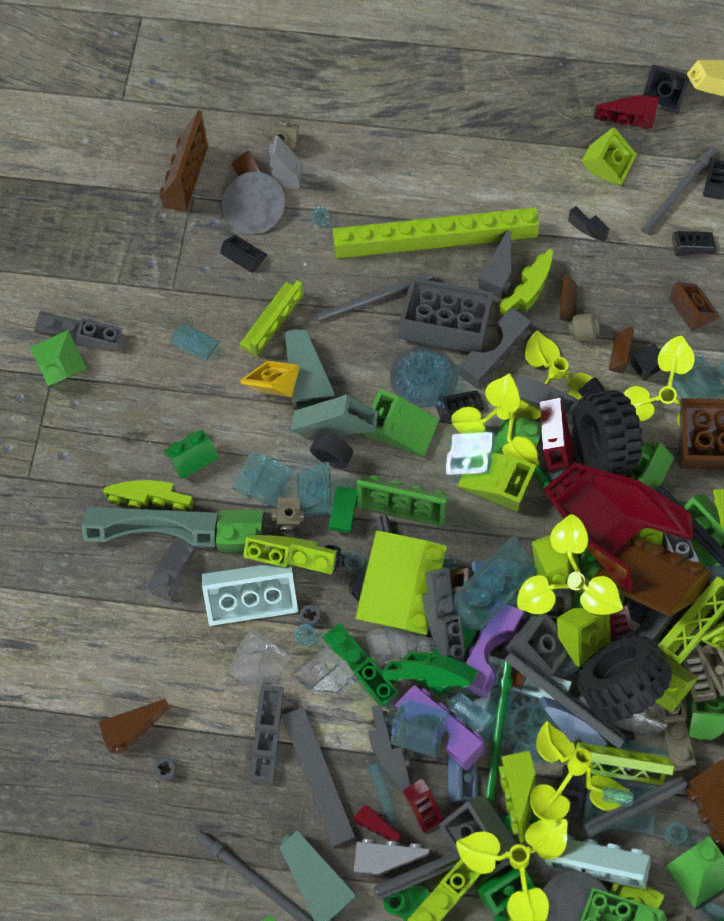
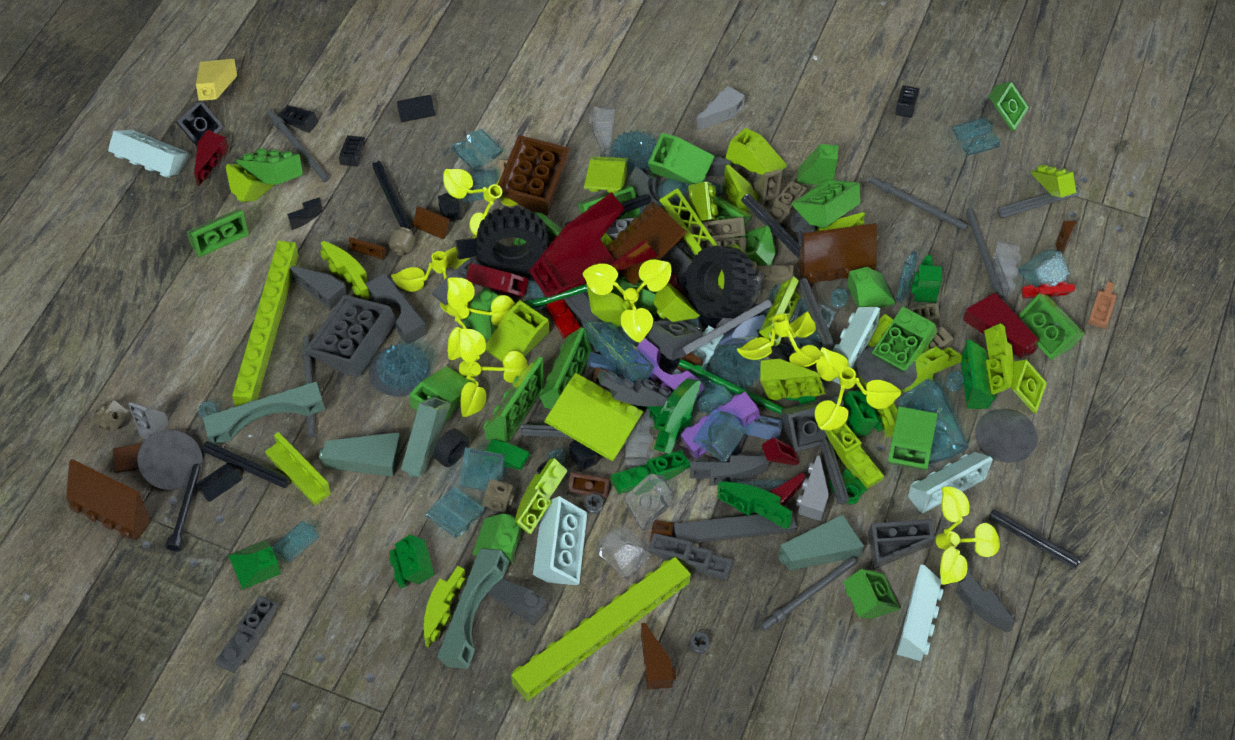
camera: 80 degrees left, 10 degrees down
(58, 357) = (272, 658): bright green slope -> none
(159, 662) = (600, 629): none -> lime brick
(161, 314) = (254, 564): none -> green slope
(167, 237) = (175, 541): none -> black piece
(267, 270) = (246, 464): none -> black axle
(273, 378) = (364, 475): yellow slope -> none
(294, 697) = (662, 528): none -> reddish brown slope
(299, 631) = (610, 504): clear light blue bush -> none
(304, 237) = (227, 423): none -> sand green arch
(333, 604) = (588, 484): none -> reddish brown slope
(351, 788) = (753, 499): none -> green slope
(444, 430) = (470, 347): none -> neon yellow plant
(446, 408) = (438, 350): black slope -> none
(465, 542) = (571, 360): none -> bright green slope
(470, 453) = (496, 347): clear light blue slope -> none
(533, 151) = (218, 232): none -> bright green slope
(539, 523) = (562, 317): none -> red hinge
(615, 58) = (148, 152): none -> light aqua slope
(618, 796) = (809, 314): clear light blue pin -> none
(635, 171) = (272, 165): none -> bright green slope
(645, 300) = (391, 195): none -> black axle
(692, 305) = (410, 167): reddish brown slope -> none

